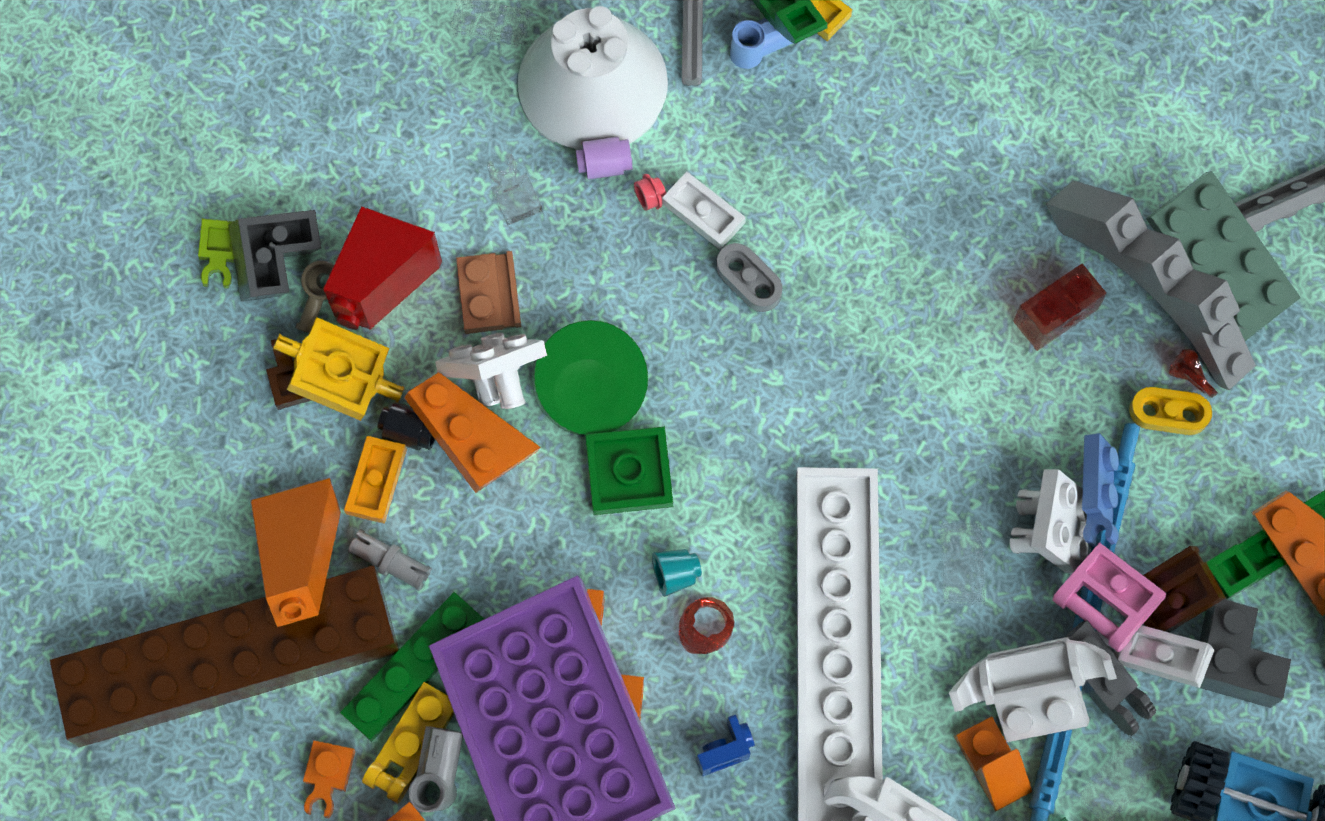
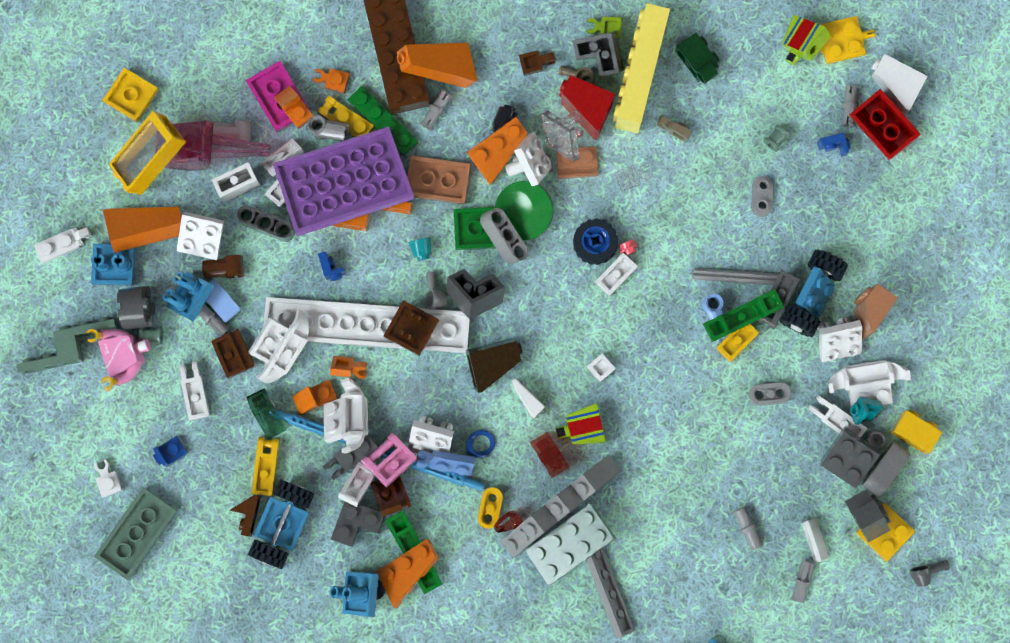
camera: 95 degrees right, 10 degrees up
(283, 84) = (698, 58): none -> dark green hinge
(300, 172) = (643, 63): none -> light yellow brick
(338, 368) = (535, 85): yellow plate -> none
(375, 479) = (477, 103): light orange plate -> none
(421, 114) = (679, 130): none -> dark tan plate
(439, 306) = (562, 134): none -> clear plate
(532, 542) = (438, 179): none -> nougat plate
(592, 80) = (696, 221): white cone -> none
(604, 158) = (648, 224): lavender brick -> none
(644, 408) = (512, 240): none -> light grey beam
(649, 269) = (599, 252): none -> black wheel
(694, 641) = (383, 265): clear red piece -> none
(750, 278) = (577, 297): light grey plate -> none
(769, 459) = (474, 296): none -> dark grey brick
(774, 539) = (434, 299): none -> light grey bar
(842, 572) = (411, 328): none -> reddish brown plate
(883, 228) = (601, 367): none -> white plate
(894, 419) = (492, 362): none -> dark brown slope
(929, 703) = (345, 366): none -> orange plate
(965, 345) = (530, 402): none -> white slope
(998, 251) = (583, 427): none -> torso
(1070, 438) = (469, 448): none -> blue piece

